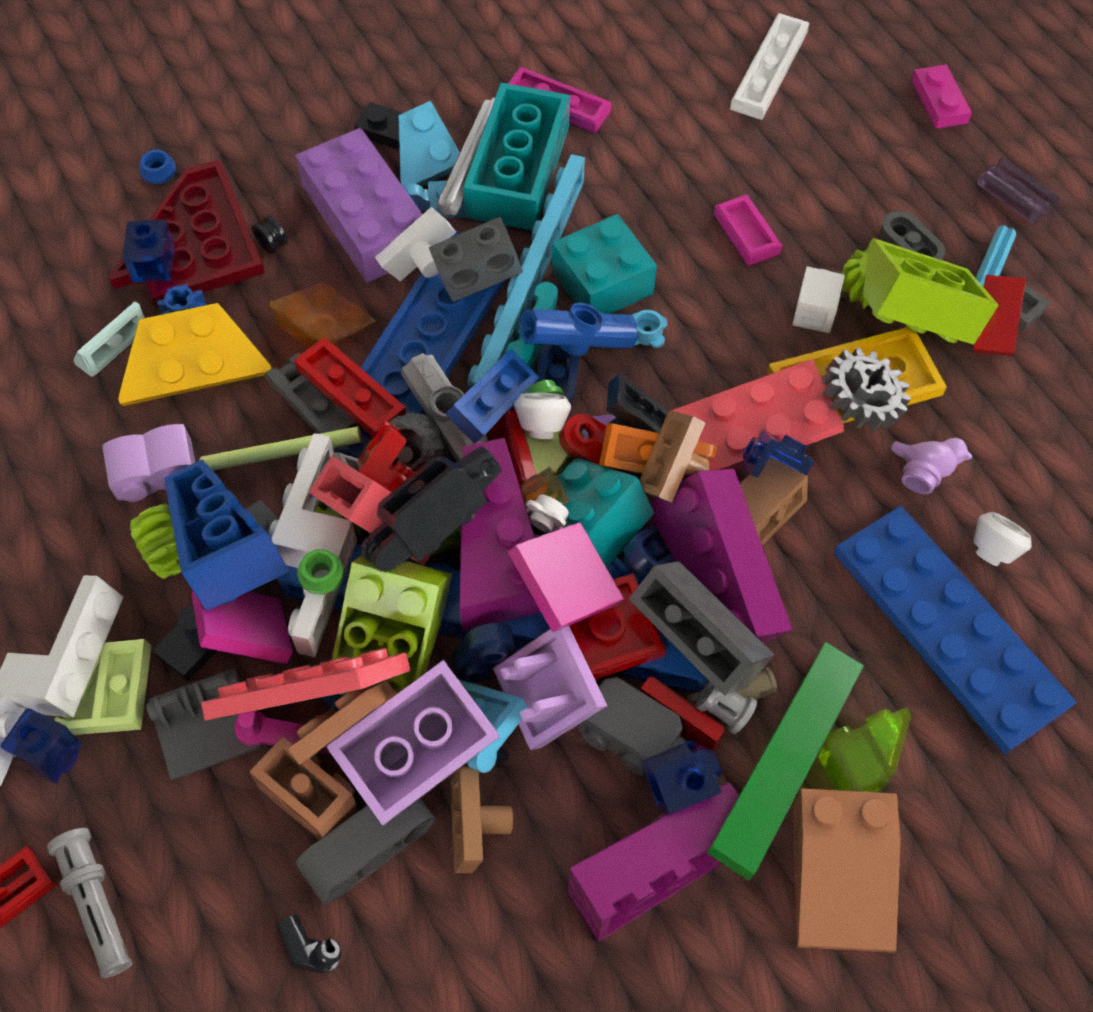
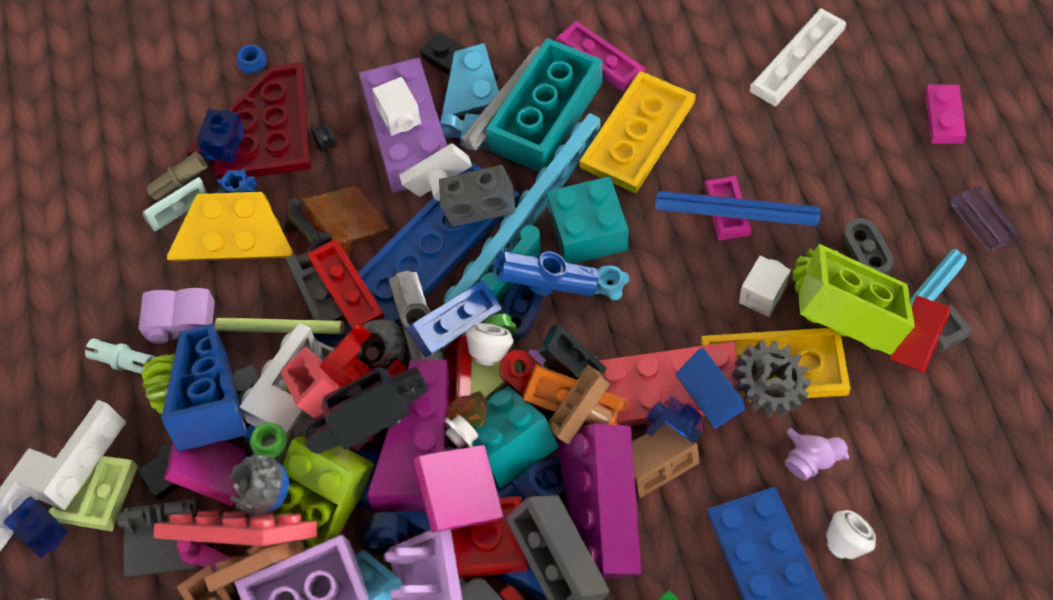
camera: 20 degrees right, 0 degrees up
(90, 524) = (118, 356): none -> light aqua pin
(105, 308) = (176, 176): none -> dark tan axle
(264, 329) = (296, 222): none -> black piece
(330, 620) = (261, 483): none -> dark grey piece
(355, 177) = (396, 106): none -> white brick
(626, 167) = (637, 131): none -> yellow plate
(762, 224) = (737, 208): none -> blue axle
(807, 410) = (710, 388): none -> blue slope

